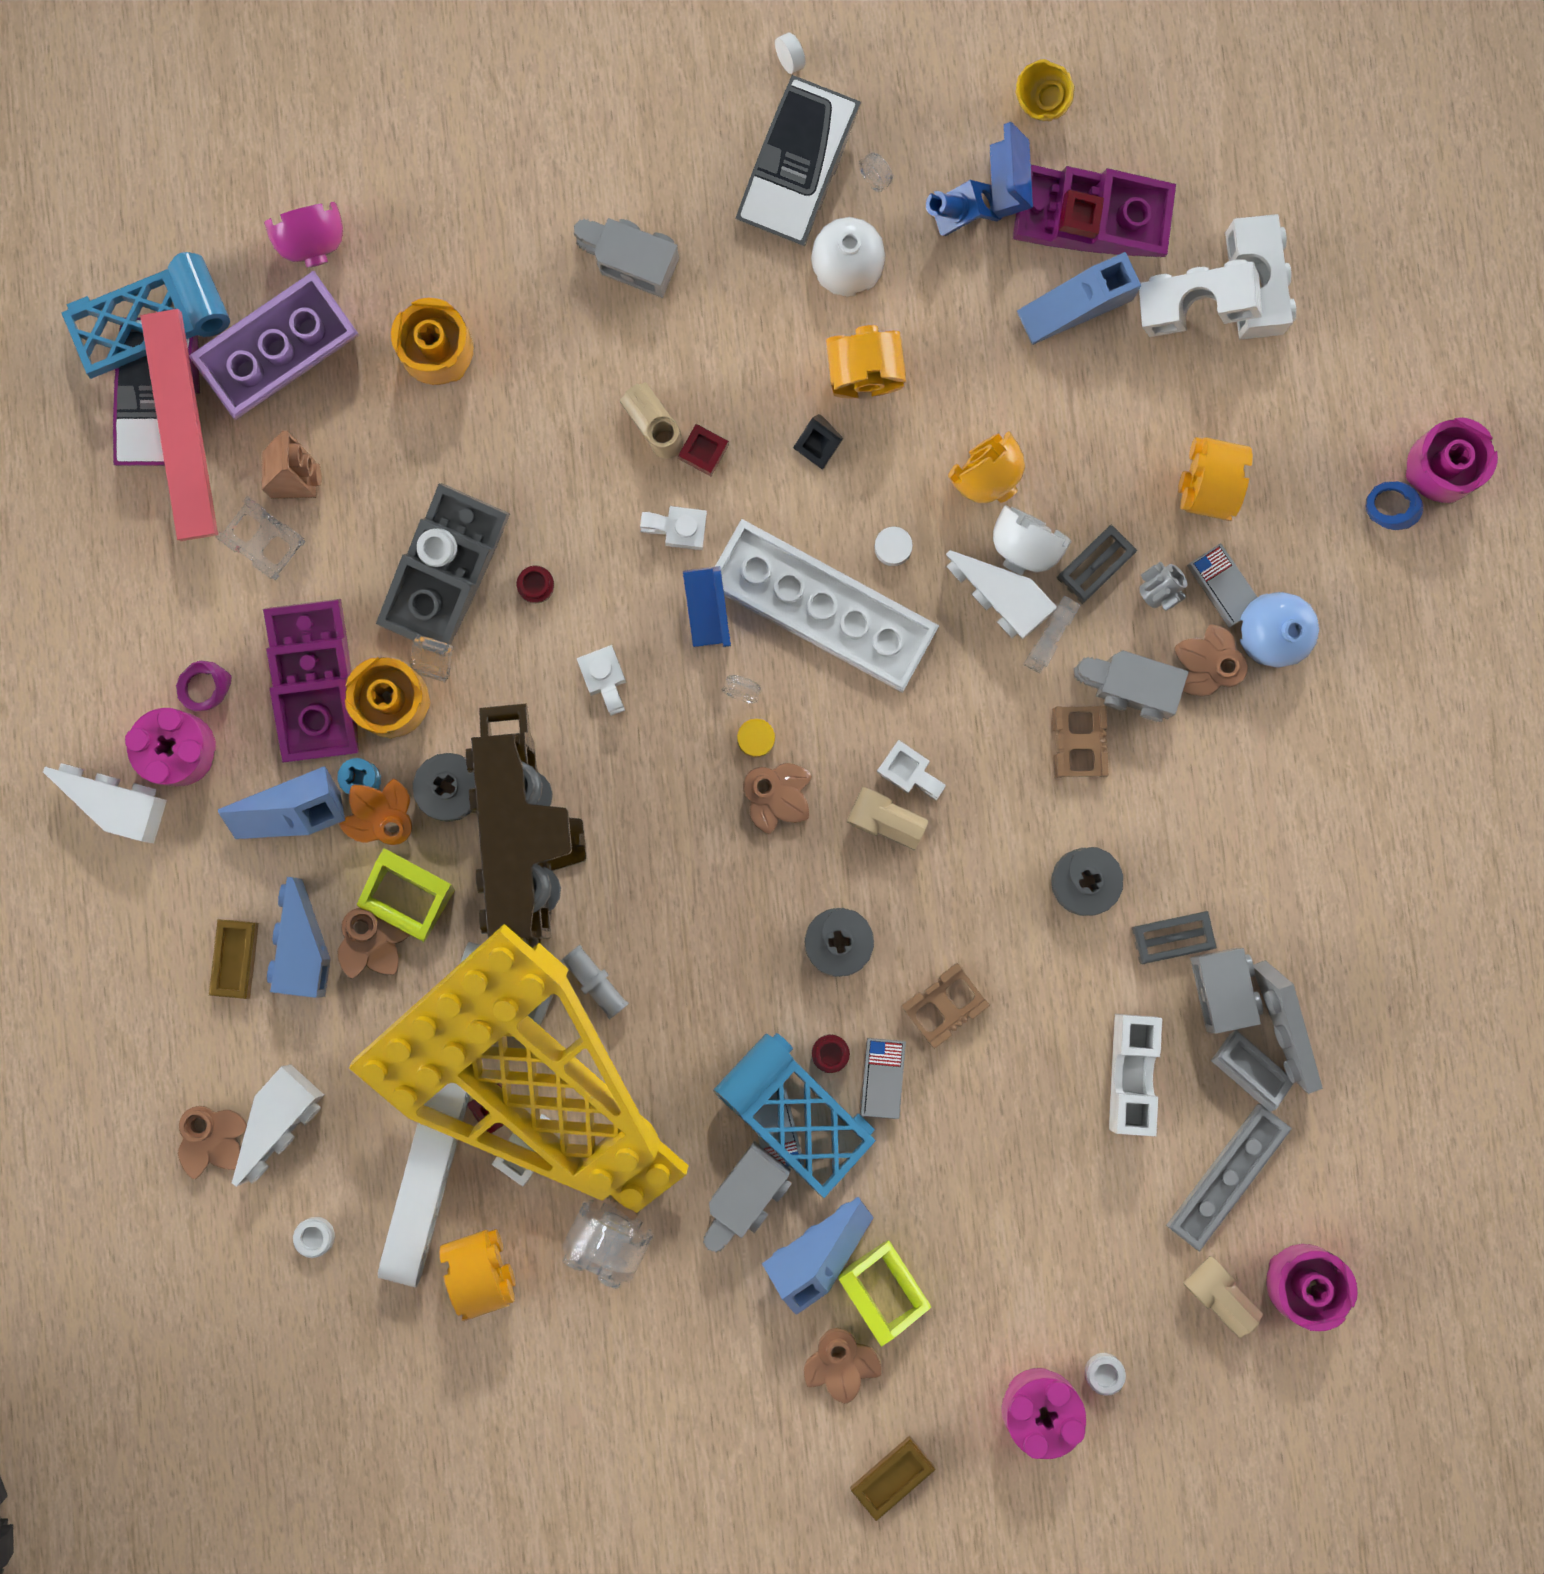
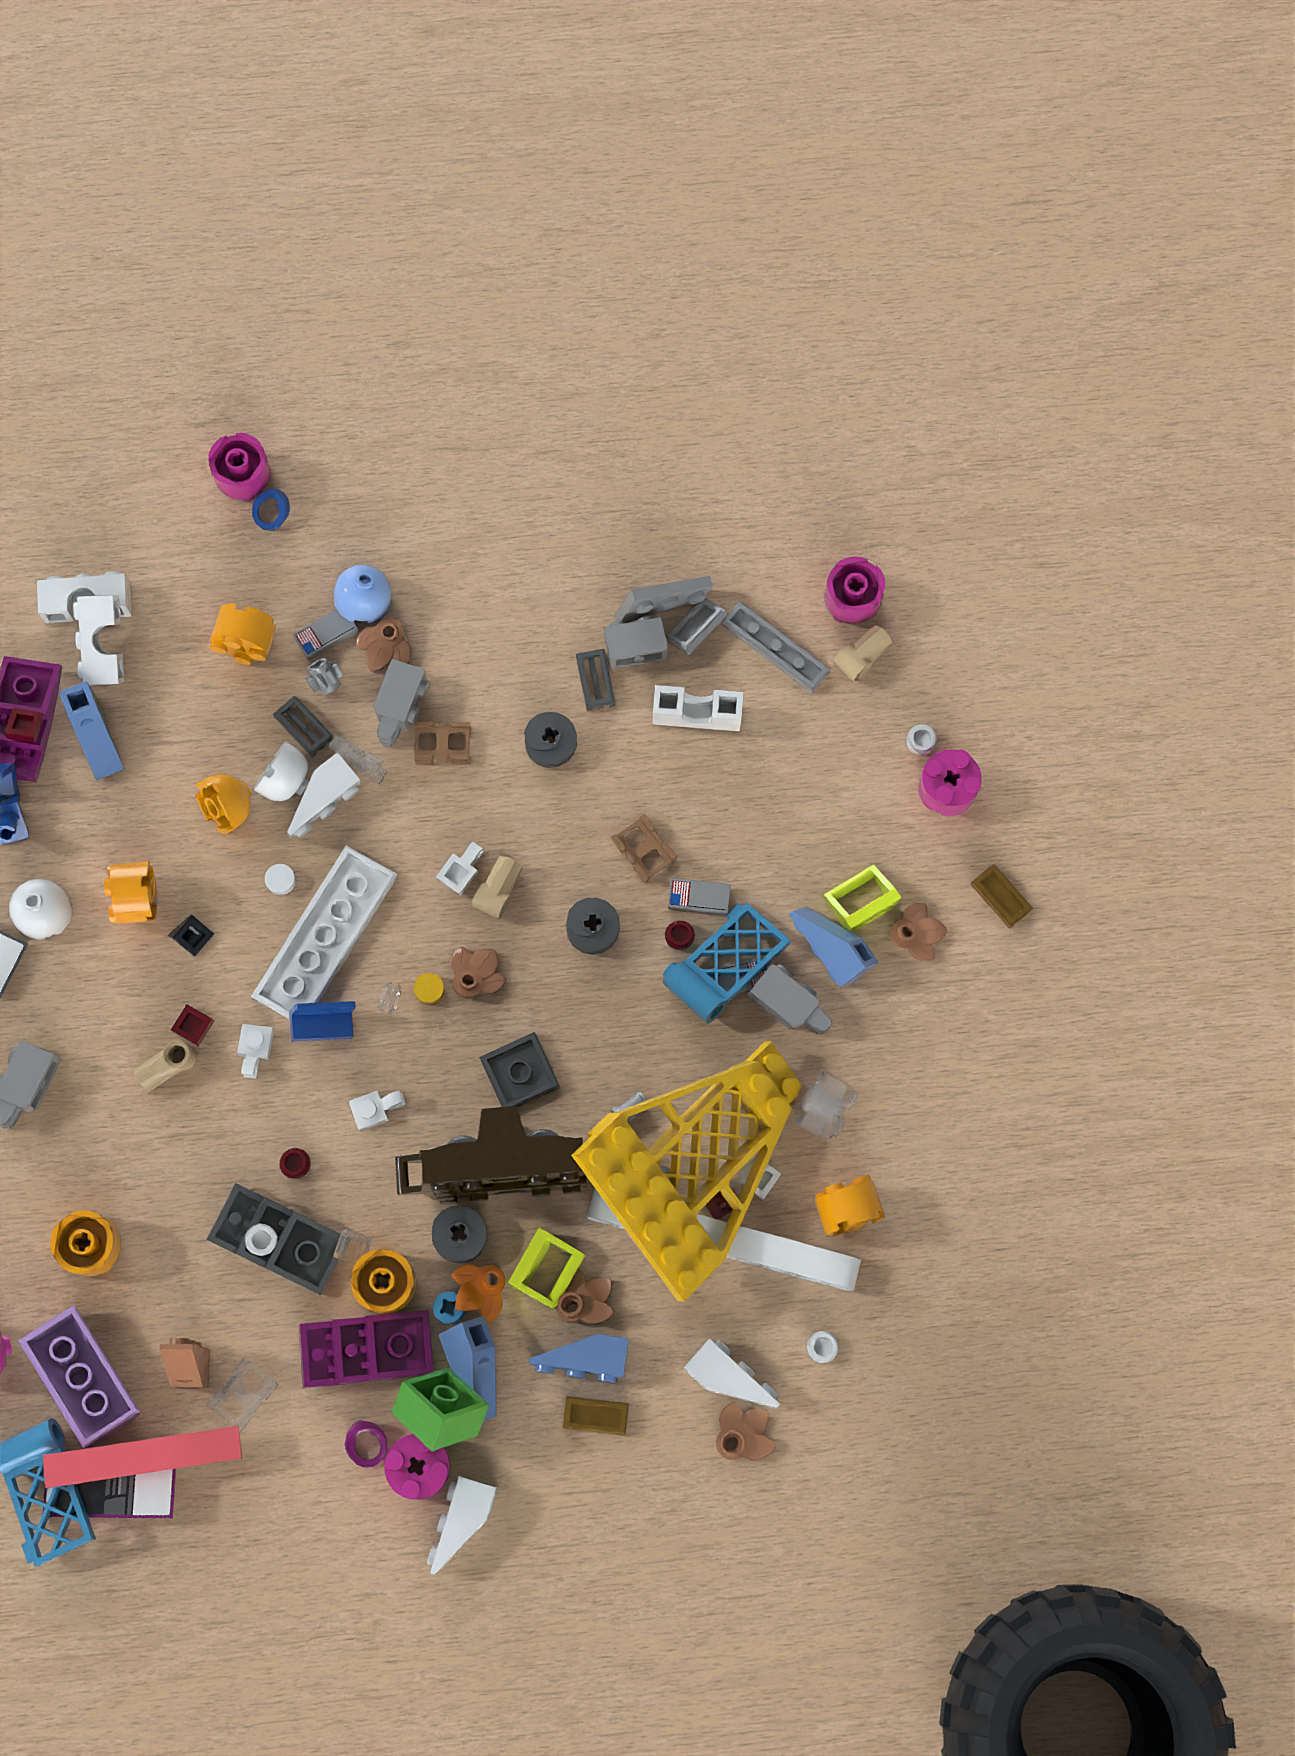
camera: 90 degrees left, 10 degrees down
(227, 771) = (440, 1409): none -> bright green brick
(651, 854) = (519, 1071): none -> dark grey tile

